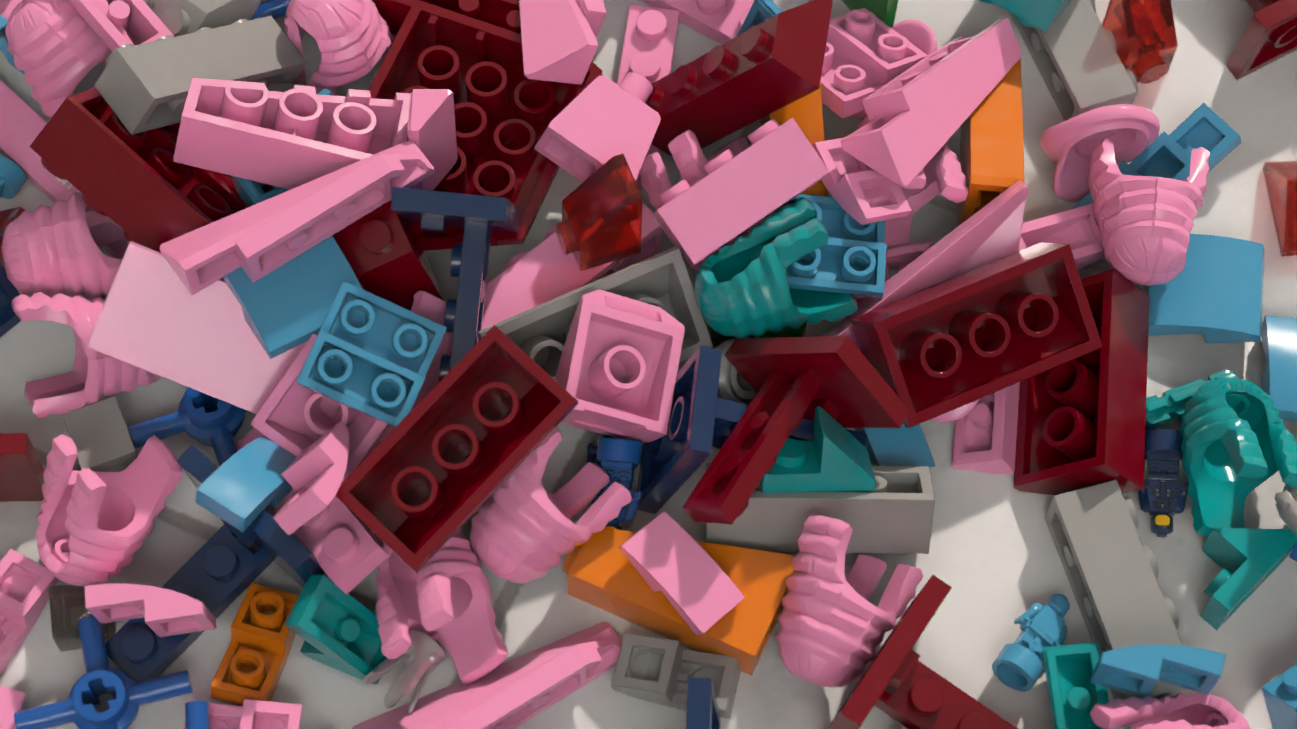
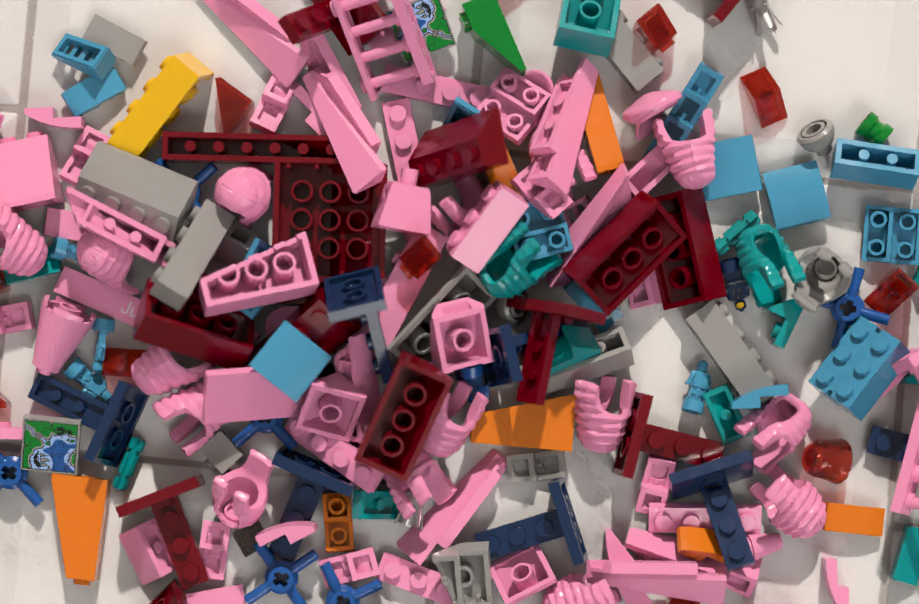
camera: 15 degrees left, 25 degrees up
(247, 483) = (311, 460): dark azure slope -> none
(293, 221) = (280, 333): bright pink wedge -> none
(315, 478) = (341, 447): bright pink slope -> none
(371, 355) = (344, 385): dark azure slope -> none
(433, 131) = (322, 252): bright pink slope -> none
(682, 571) = (524, 426): bright pink slope -> none

